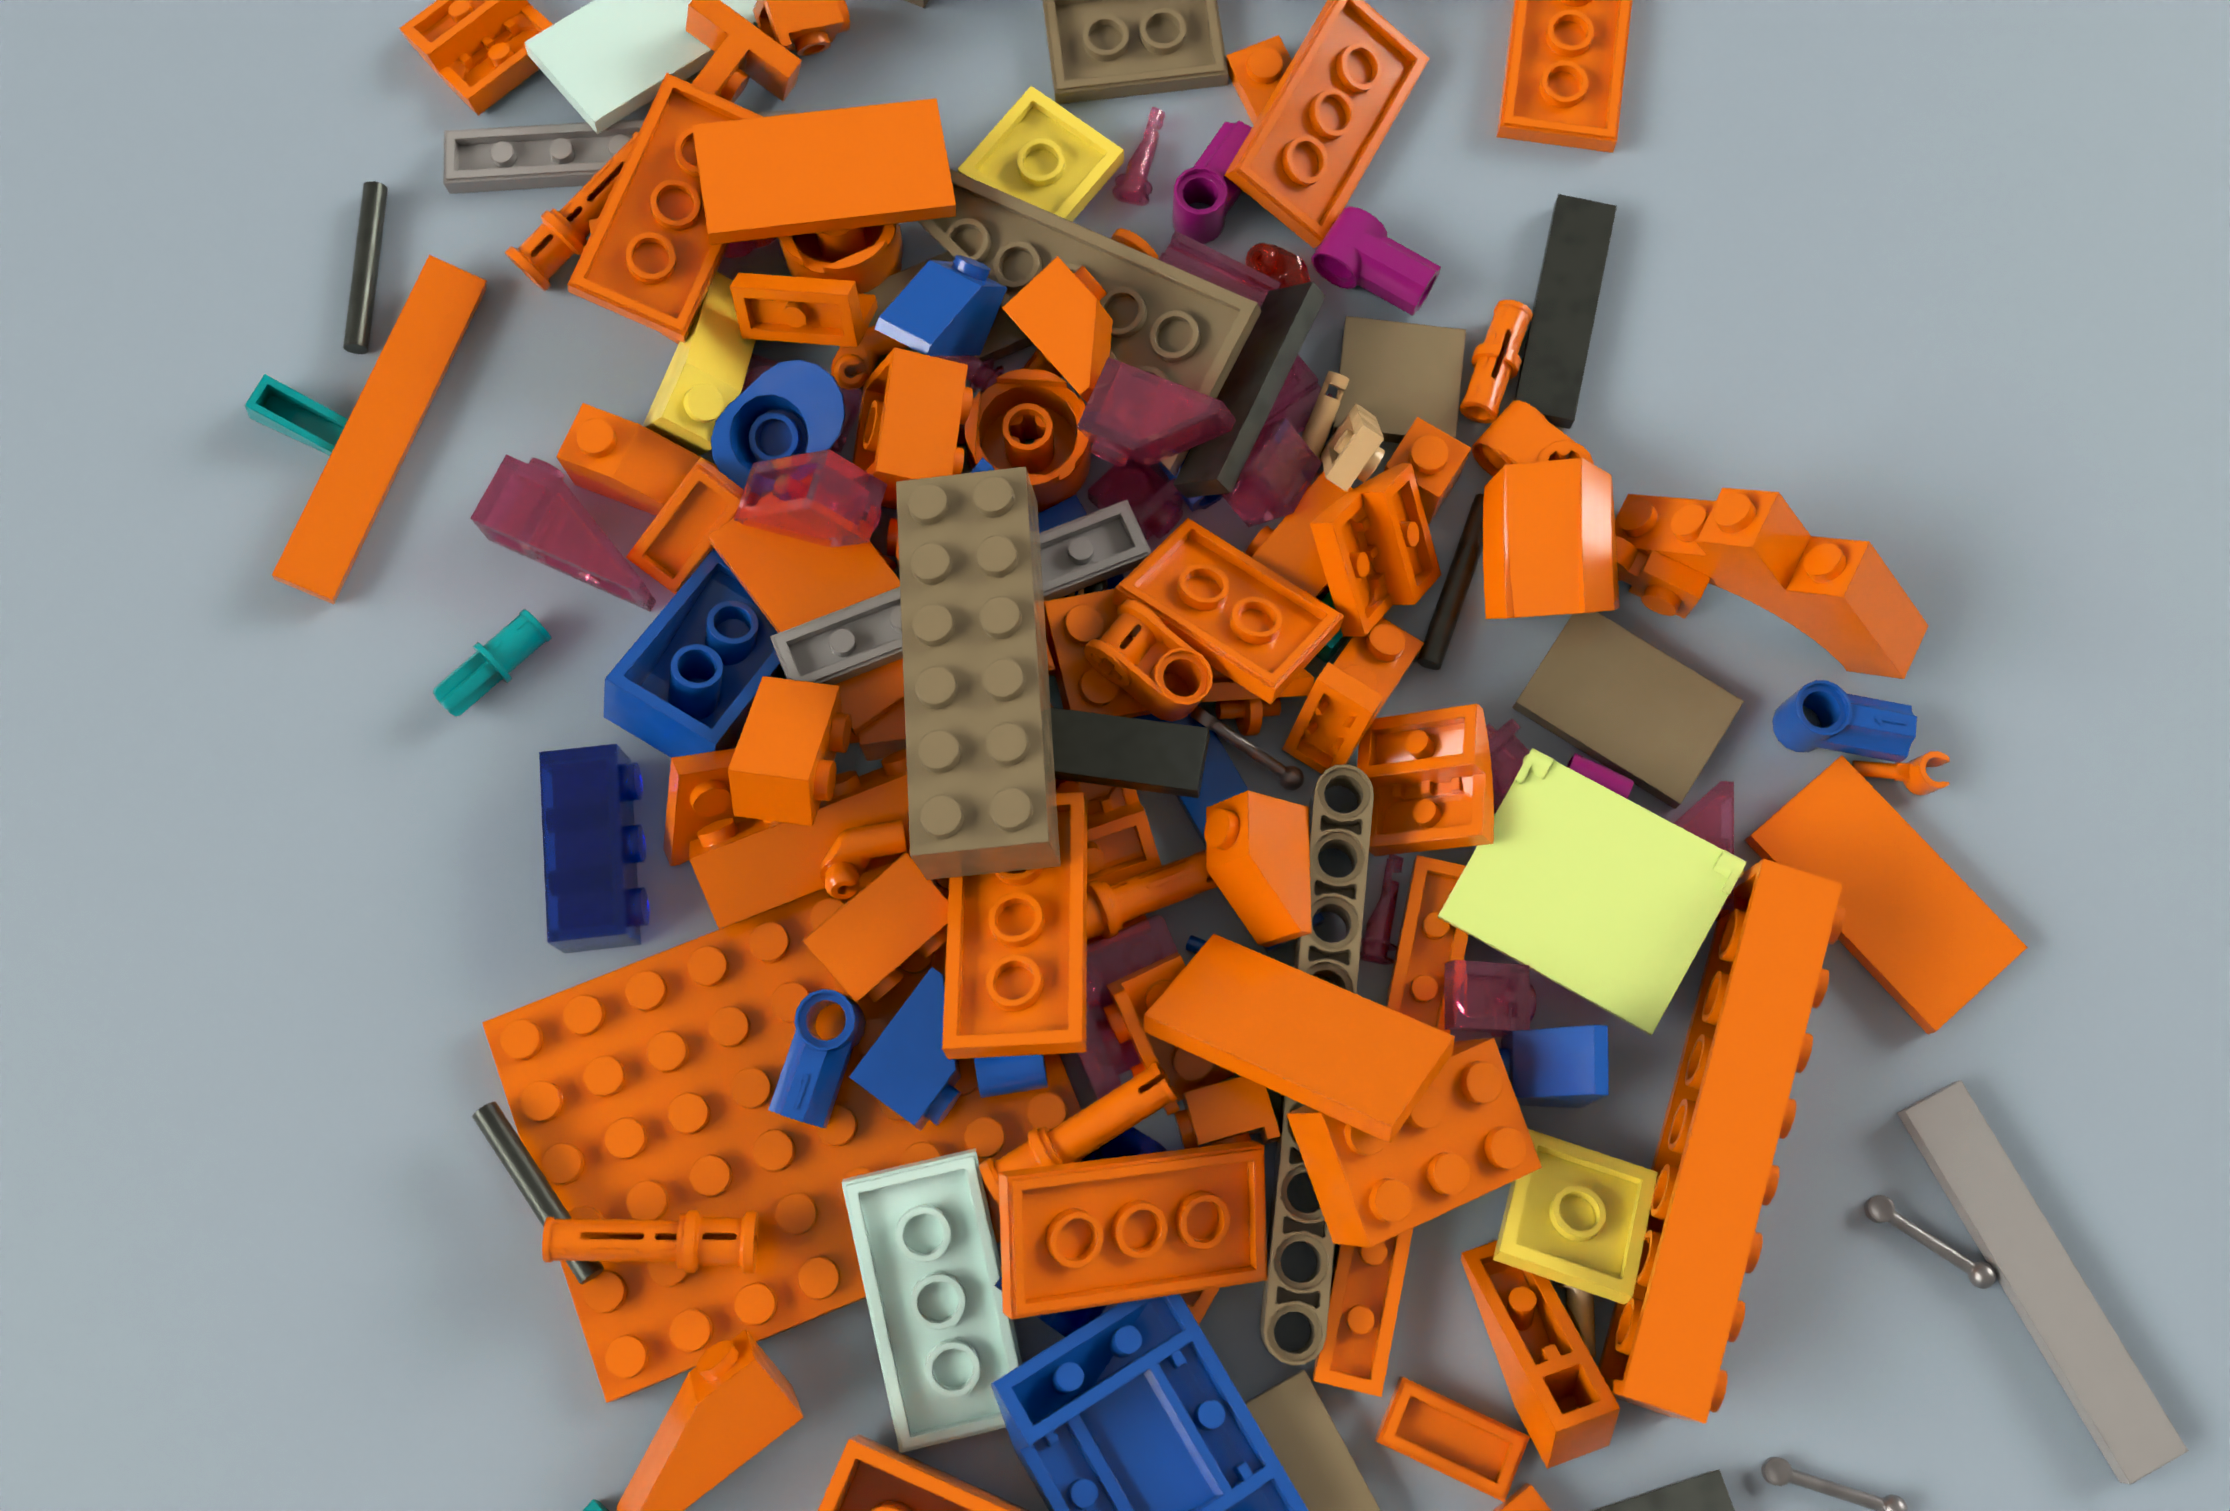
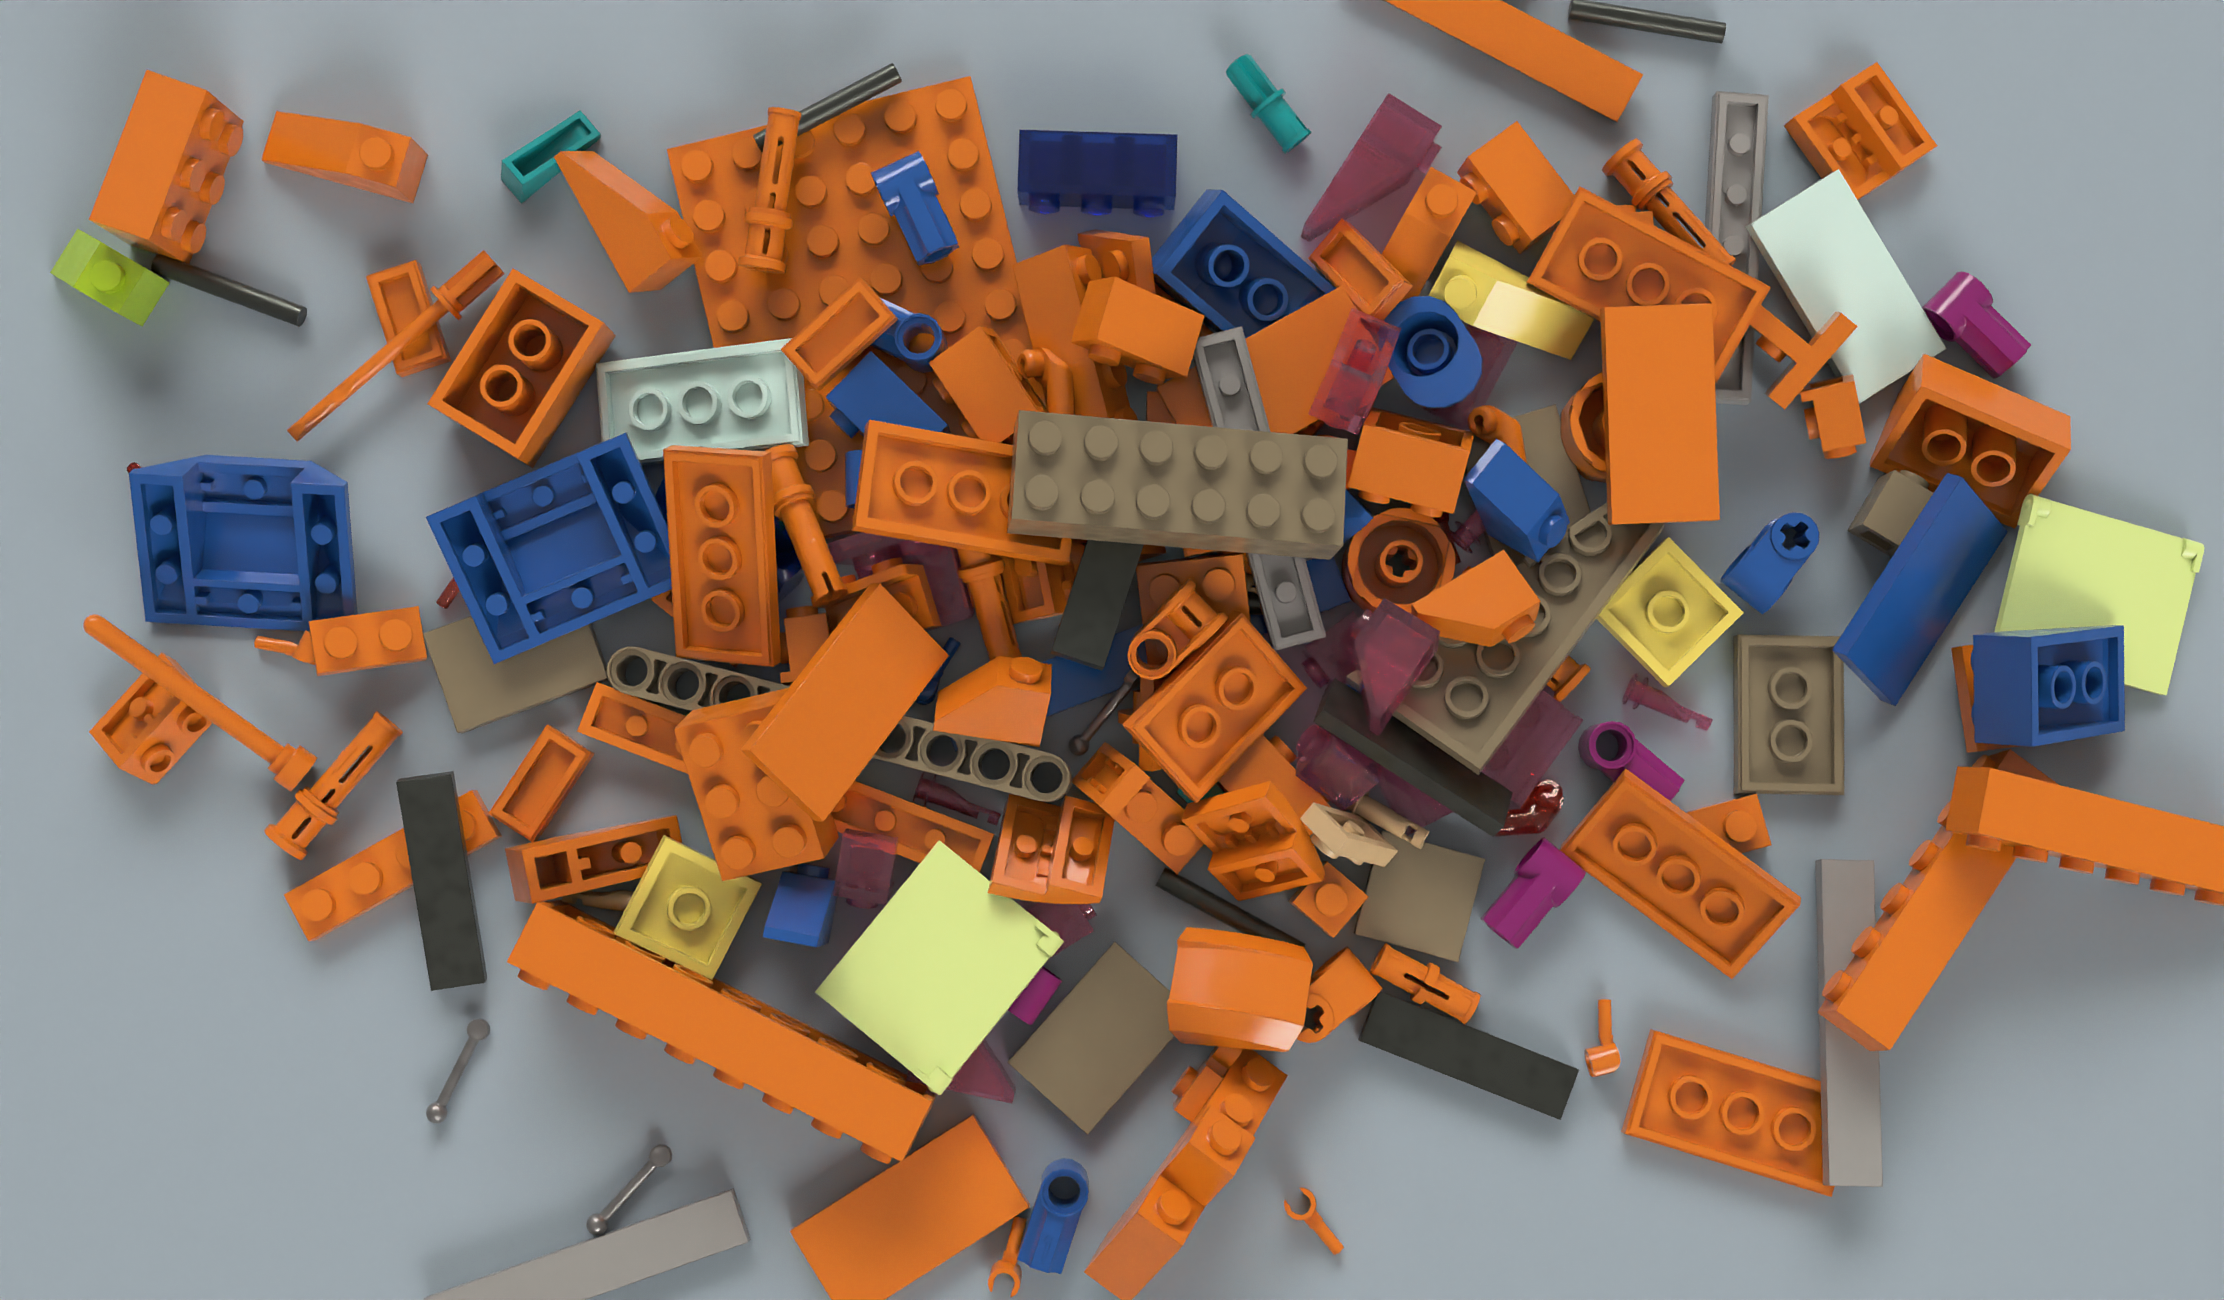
camera: 95 degrees right, 10 degrees up
(573, 362) = (1516, 188): none -> orange brick
(641, 1065) = (912, 198): none -> blue piece
(801, 309) = (1541, 387): orange panel -> none
(831, 1119) = (839, 334): none -> orange tile
(971, 68) = (1766, 566): none -> blue piece
(1538, 170) = (1606, 1057): none -> orange hand
(1780, 448) = (1315, 1222): none -> orange hand

